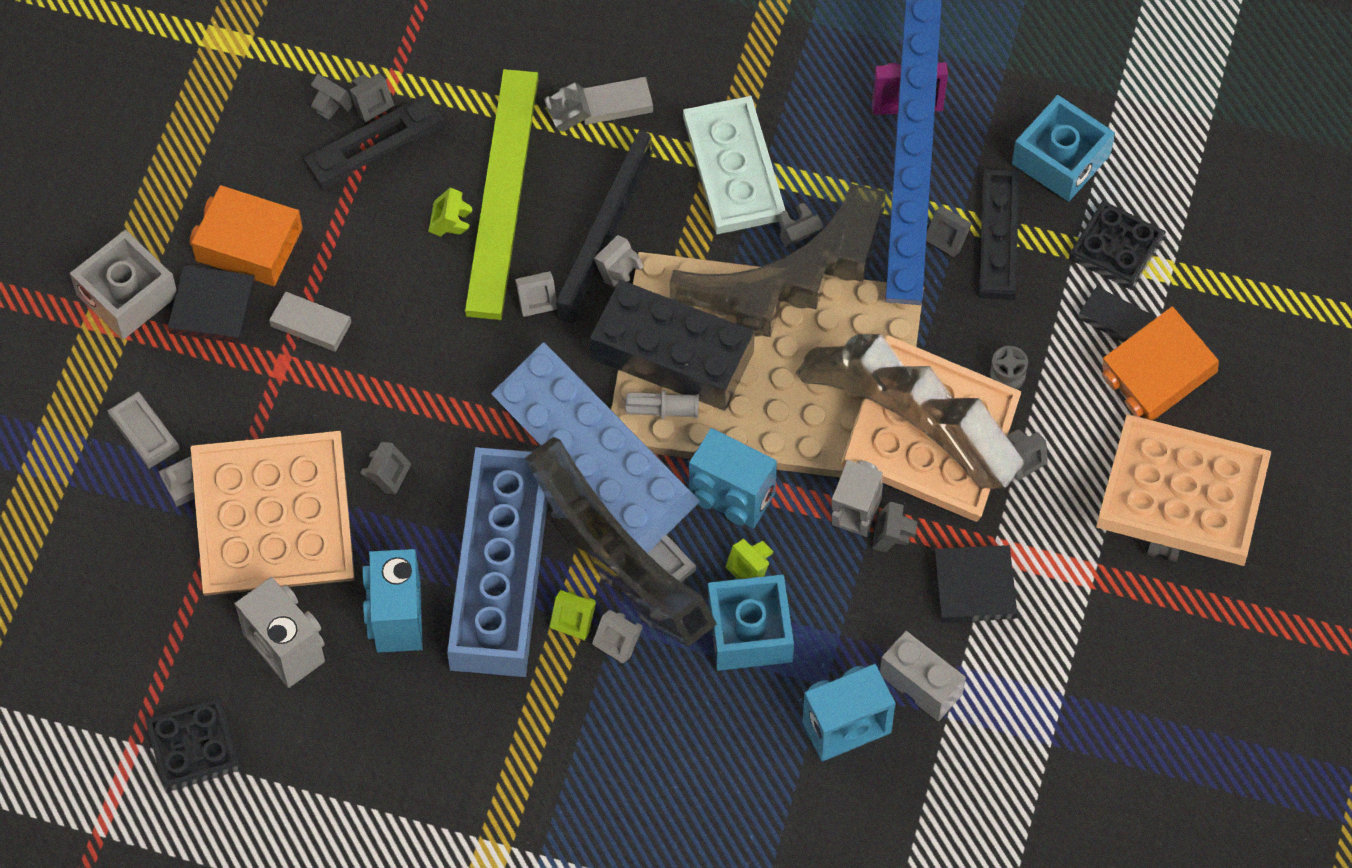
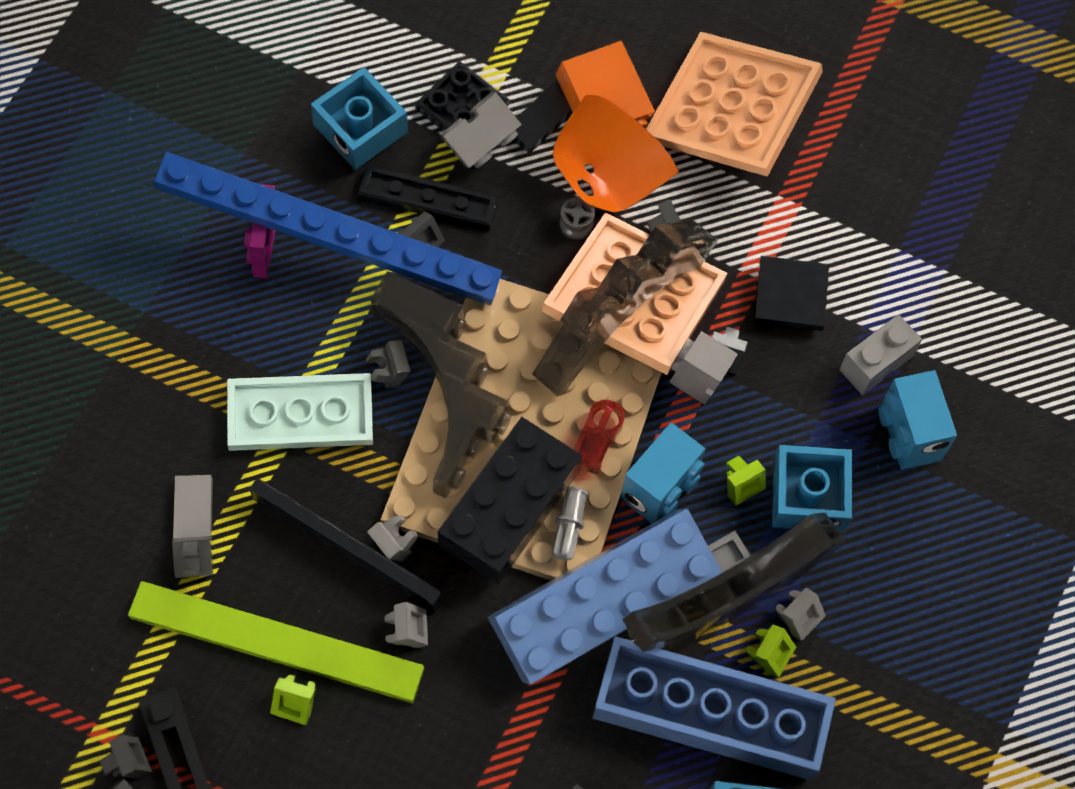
camera: 85 degrees left, 5 degrees up
(755, 413) = (596, 439): none -> clear red piece
(1078, 255) = (482, 132): none -> light grey brick
(1087, 403) = (623, 153): none -> orange piece

